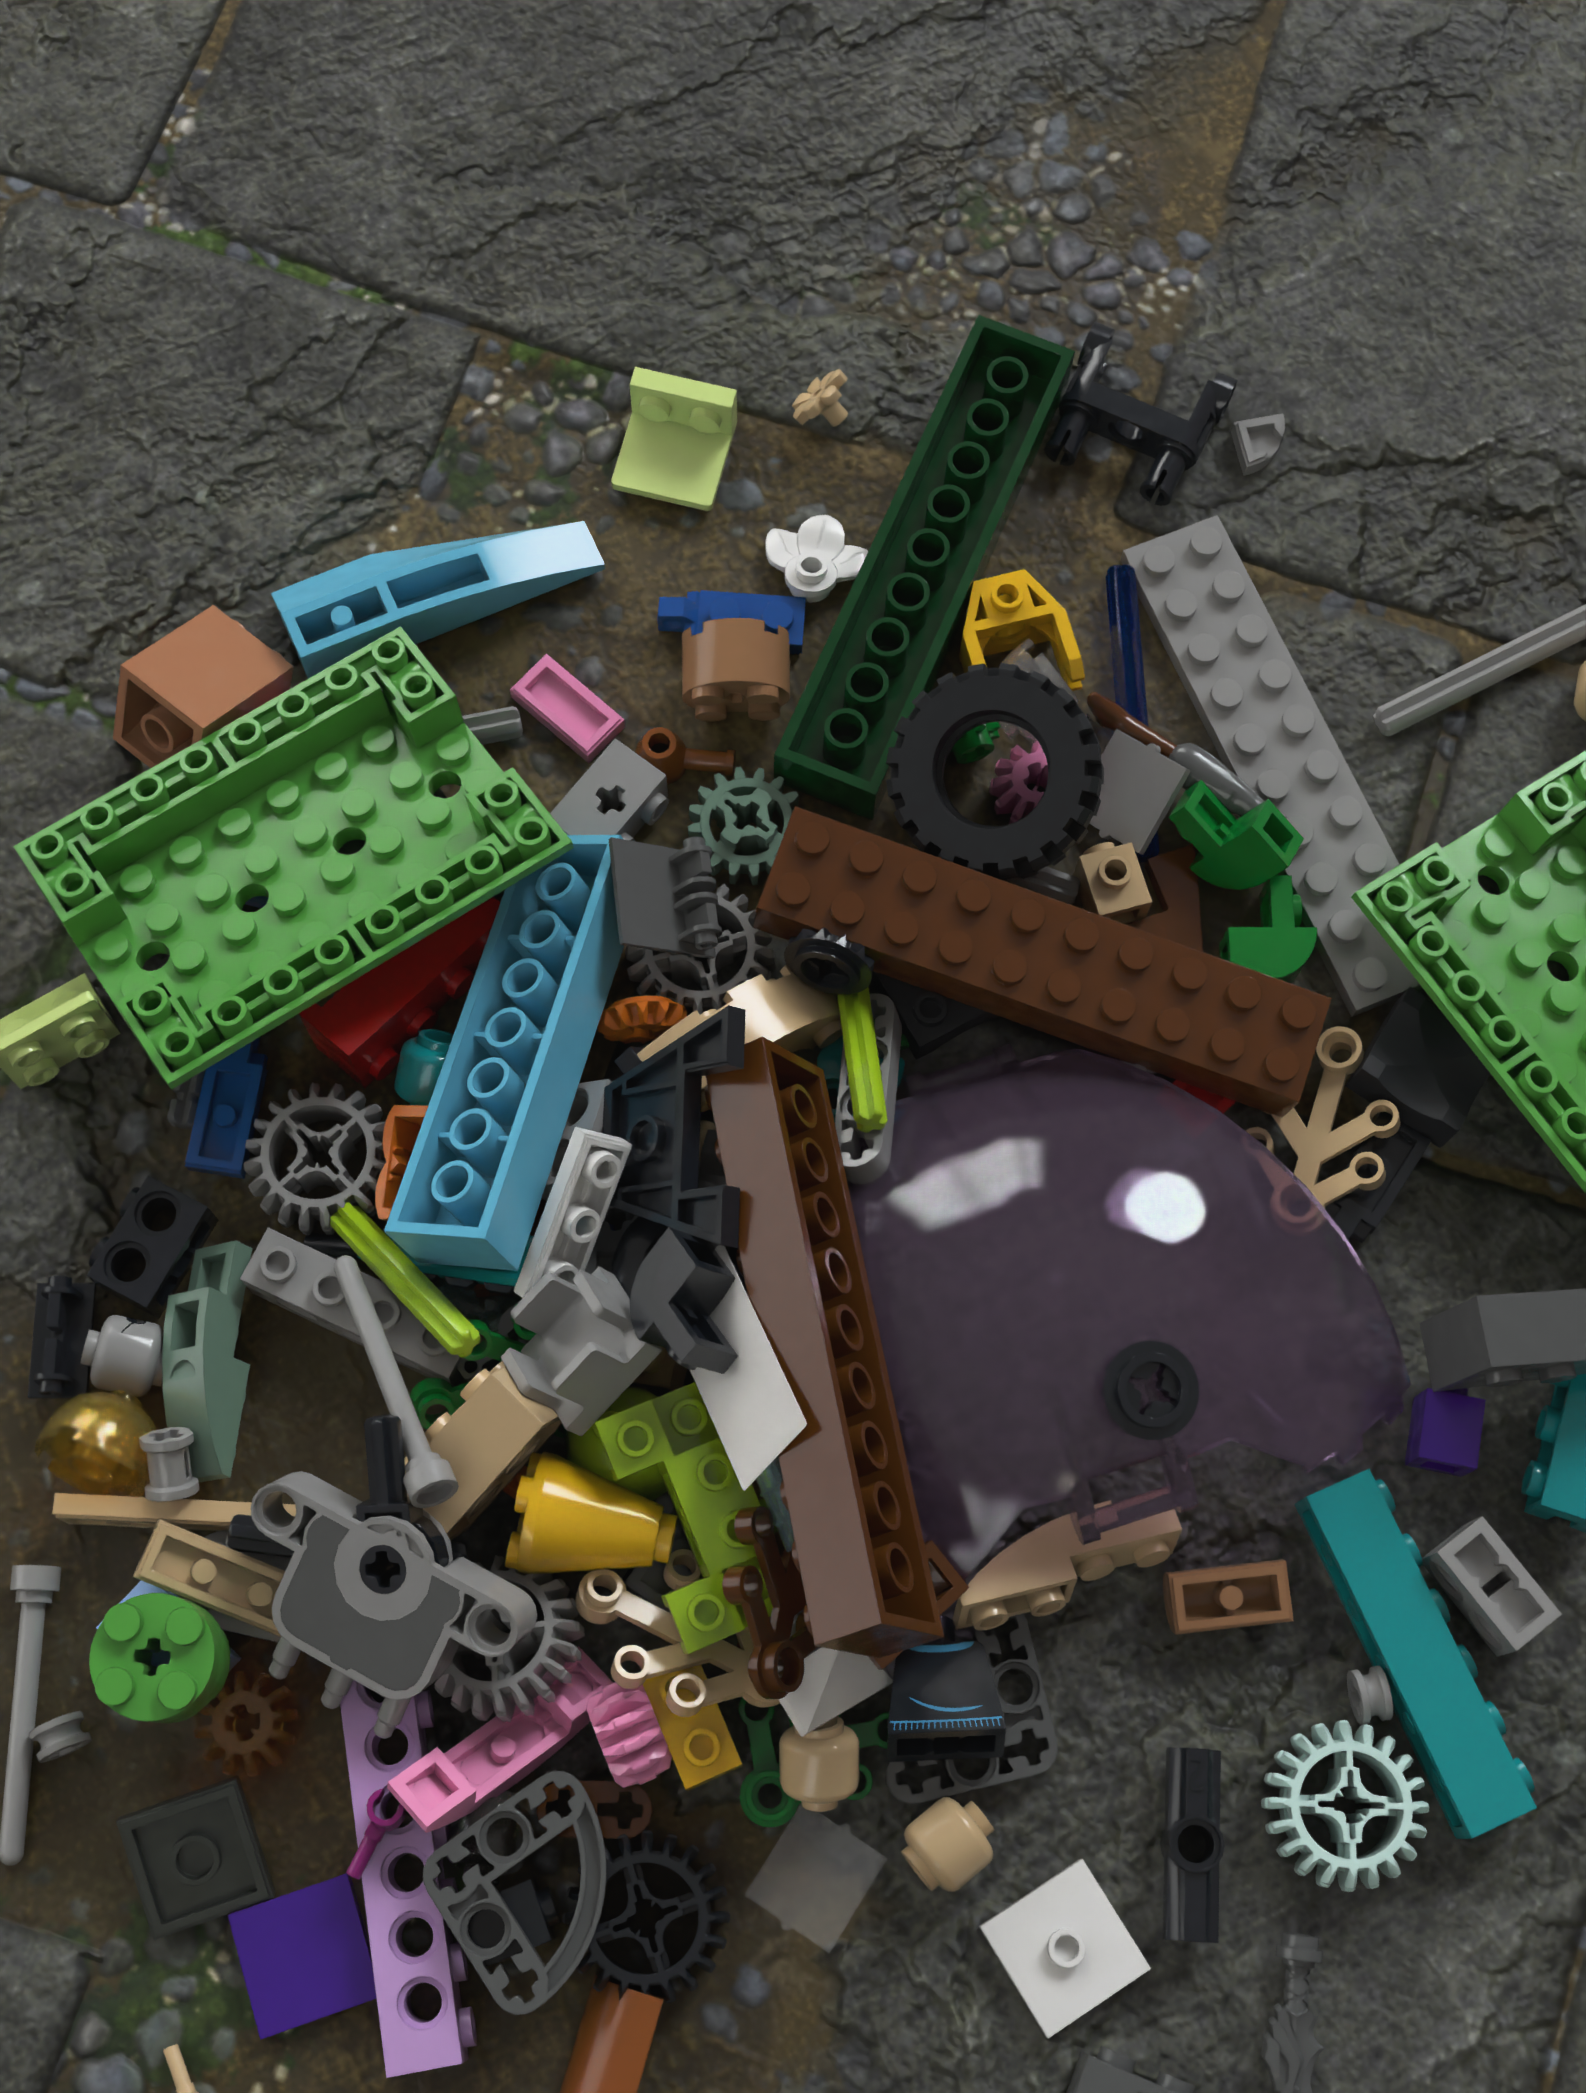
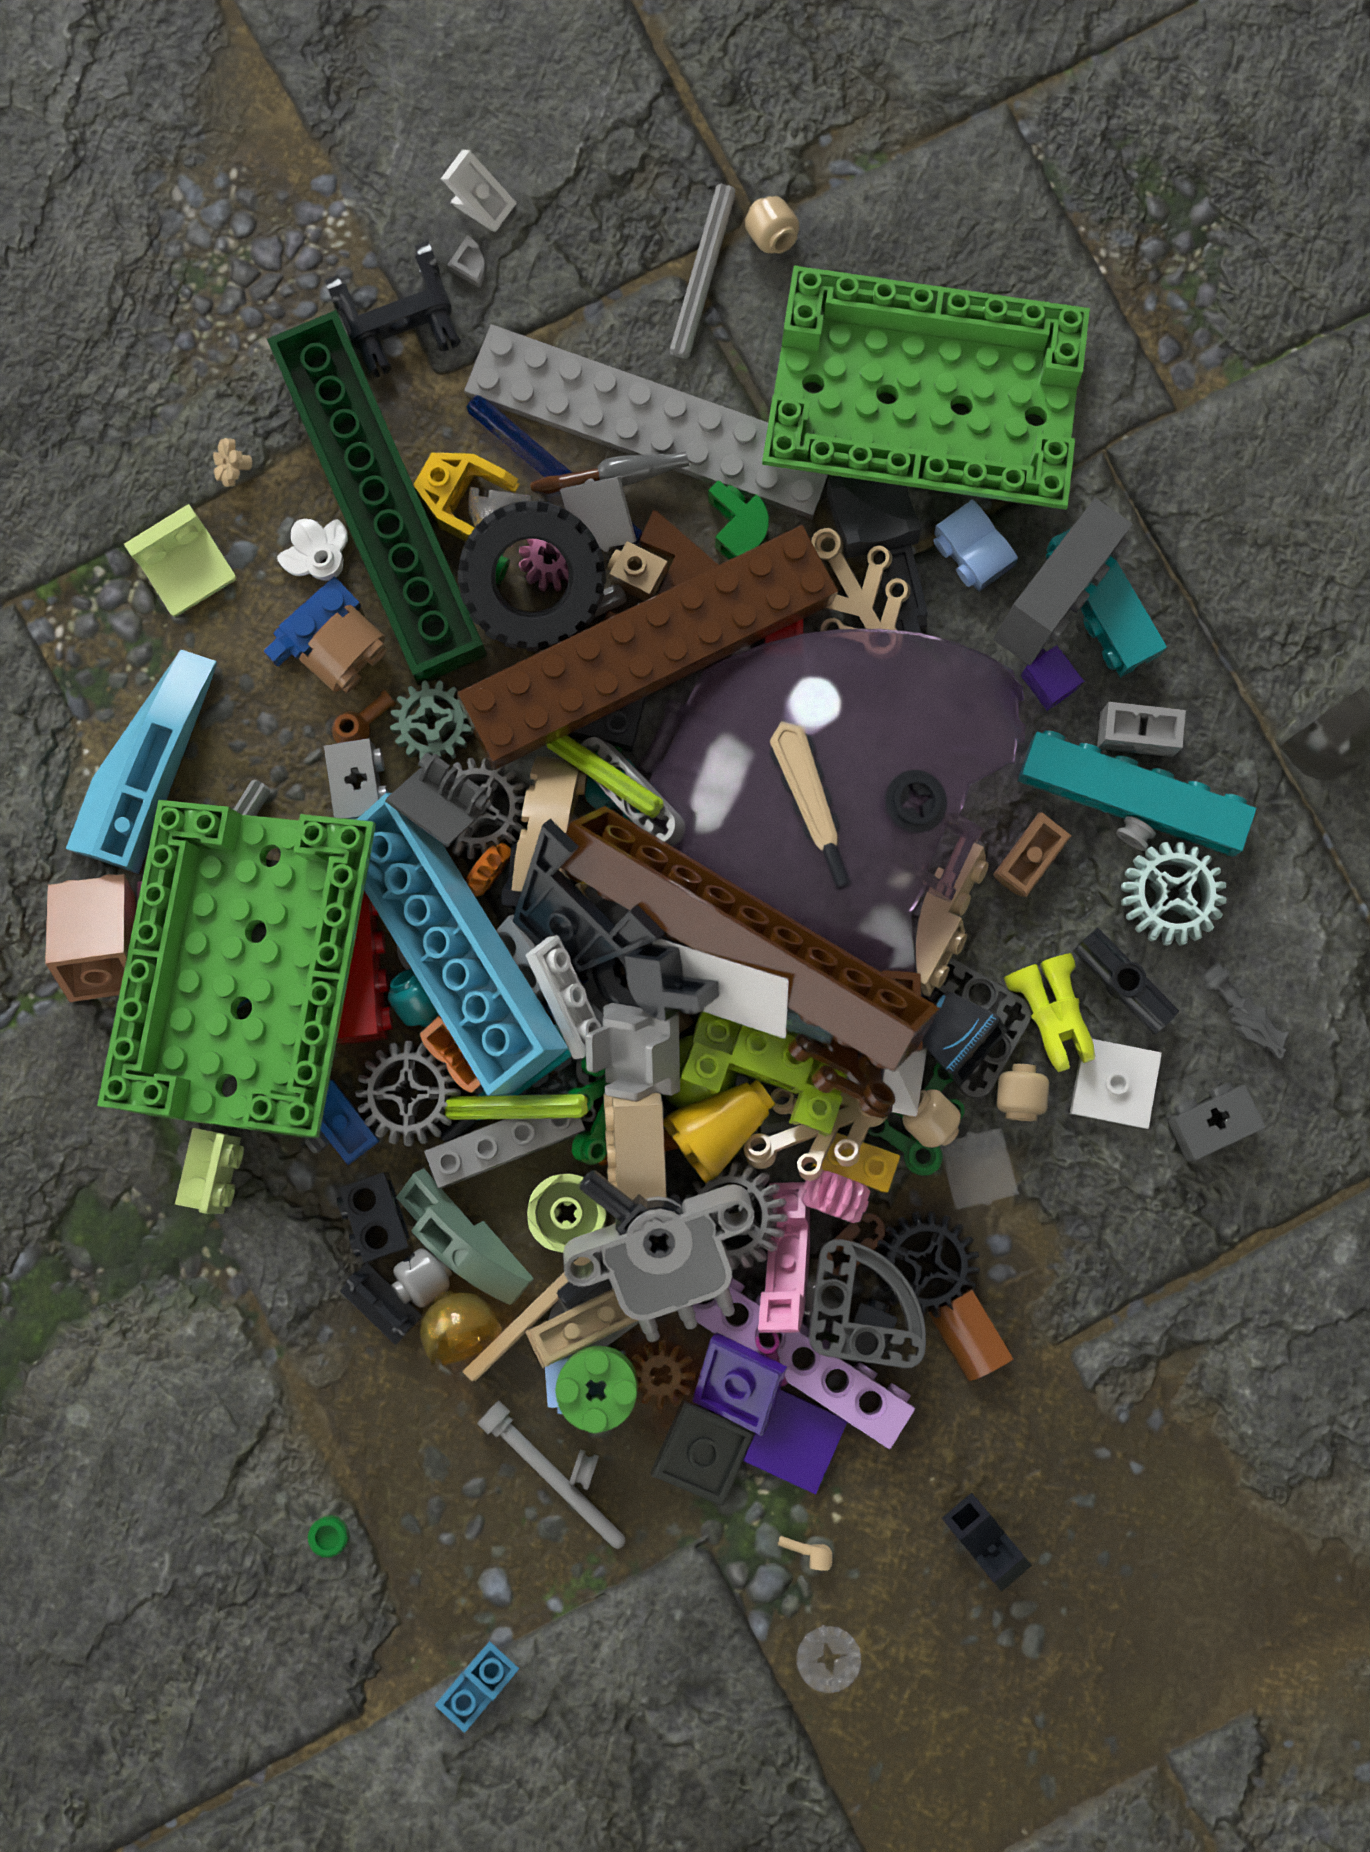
camera: 40 degrees left, 10 degrees up
(169, 1464) = (501, 1303): light grey bush -> none
(311, 1824) = (739, 1384): none -> dark purple tile
(319, 1422) = (544, 1212): none -> yellowish green brick
(427, 1476) = (634, 1182): light grey piece -> none
(567, 708) = (278, 753): bright pink tile -> none
(848, 967) = (552, 751): black gear -> none
(1054, 1242) = (802, 776): none -> tan sword
(1072, 1806) = (1059, 1019): none -> neon yellow piece
(1230, 849) = (678, 493): green brick -> none
(1337, 381) = (477, 191): none -> white slope
(1500, 1211) = (975, 546): none -> light blue brick

